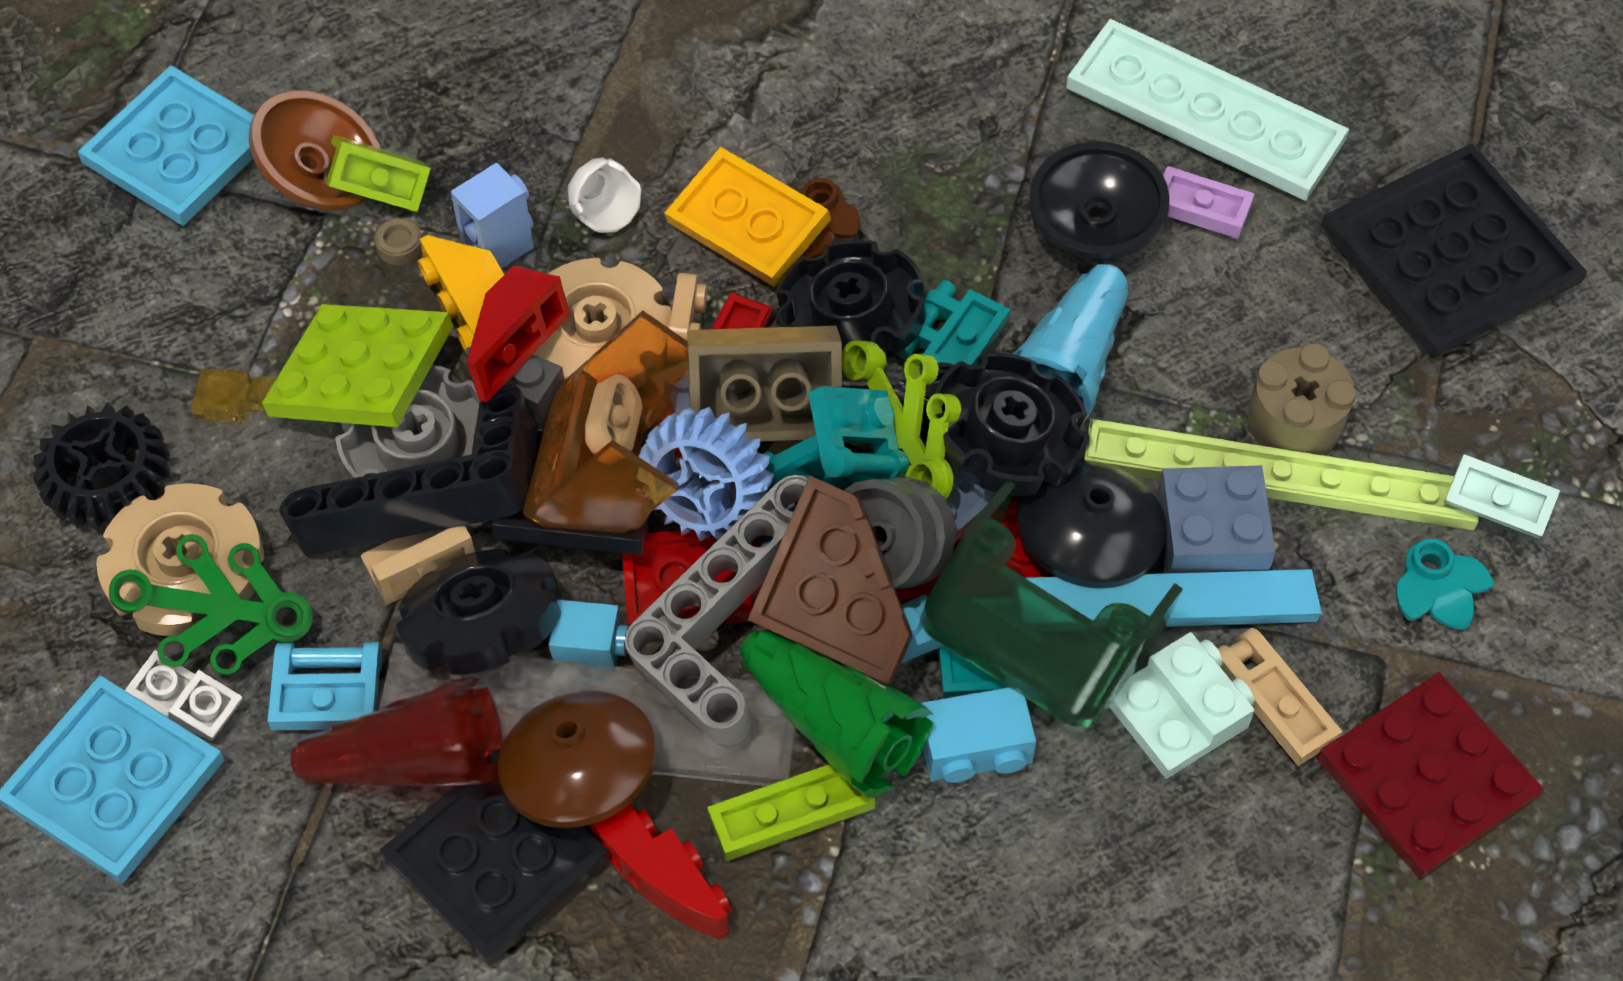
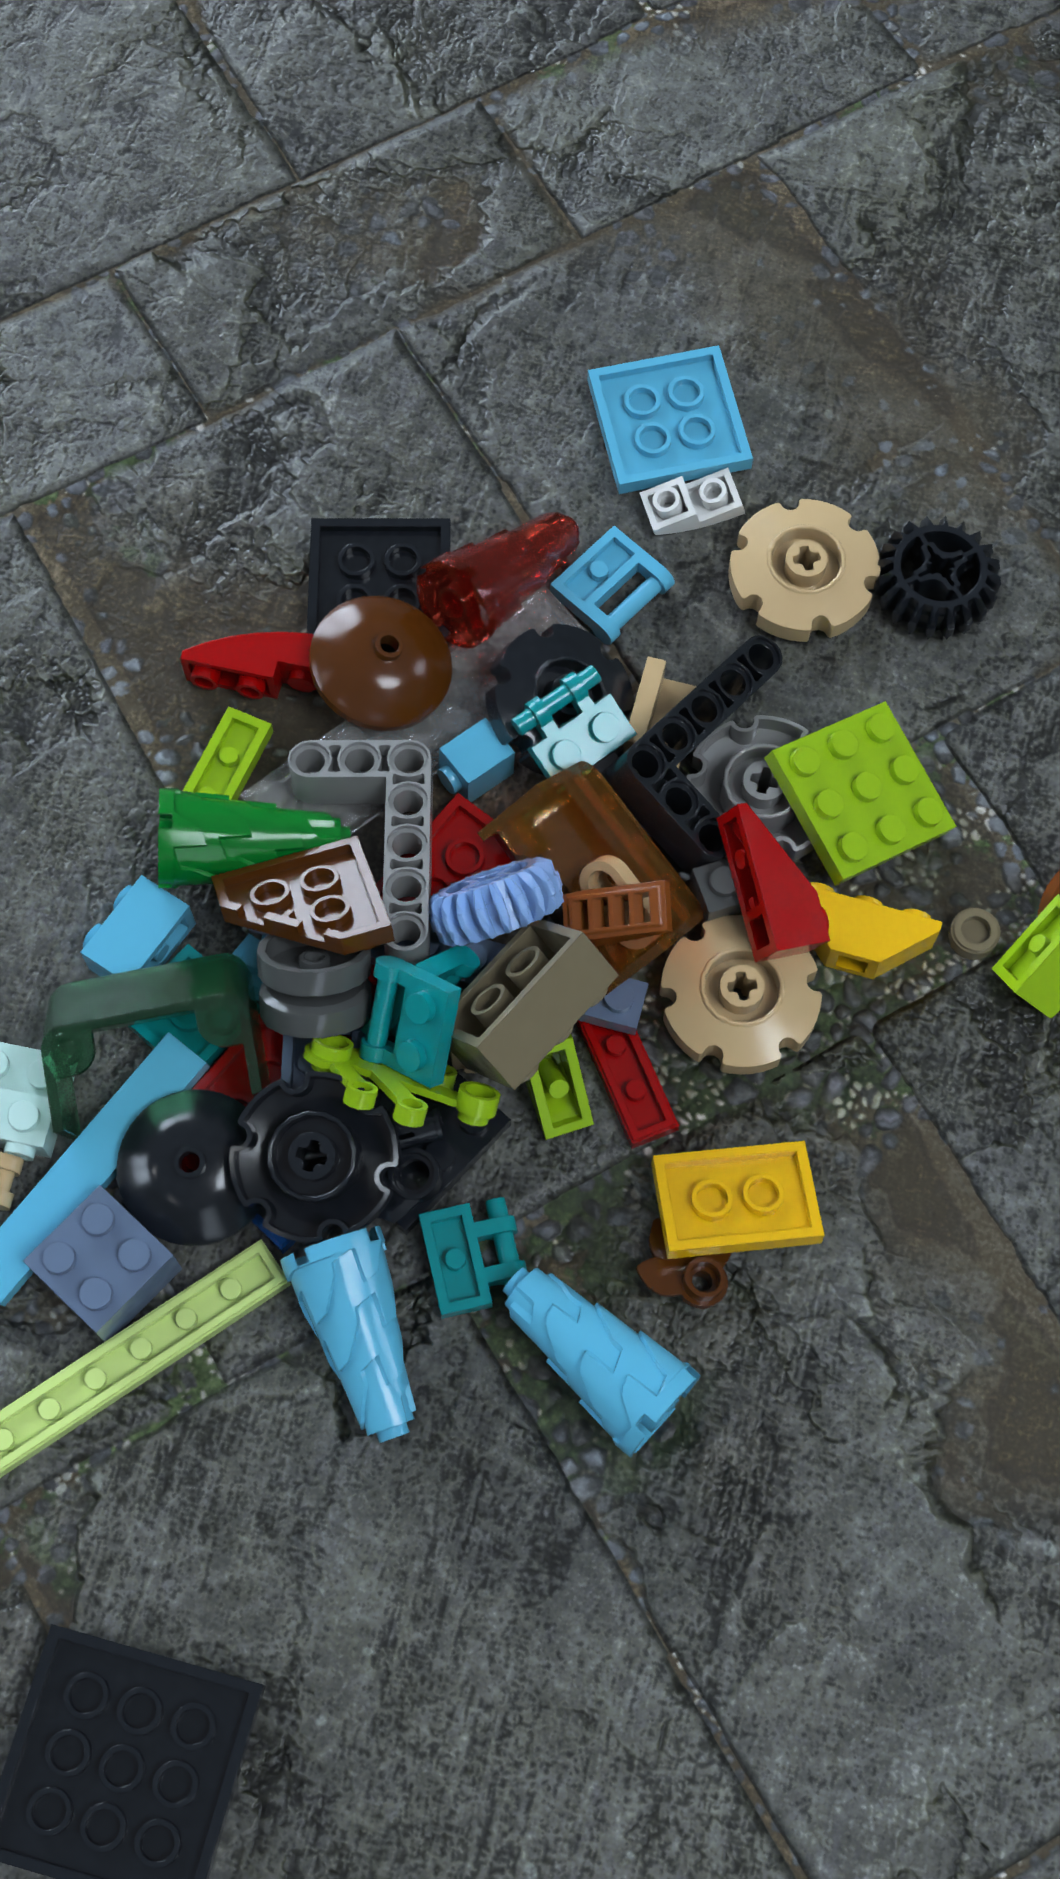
camera: 135 degrees right, 10 degrees up
(221, 606) = (734, 552): green plant -> none
(228, 394) = (931, 706): clear yellow plate -> none
(494, 214) = (910, 989): light blue brick -> none
(503, 556) = (586, 737): none -> plate
(604, 195) = (865, 1106): white hair -> none
(644, 380) = (585, 912): none -> dark orange slope
(688, 300) = (698, 1080): tan plate -> none
(859, 291) = (550, 1227): black piece -> none
(937, 179) = (617, 1373): none -> medium azure cone
(1101, 183) = (456, 1452): black dish -> none
(1207, 109) = (474, 1719): light aqua plate -> none
(1207, 202) = (385, 1600): lavender plate -> none
(1301, 400) = (110, 1421): dark tan brick -> none

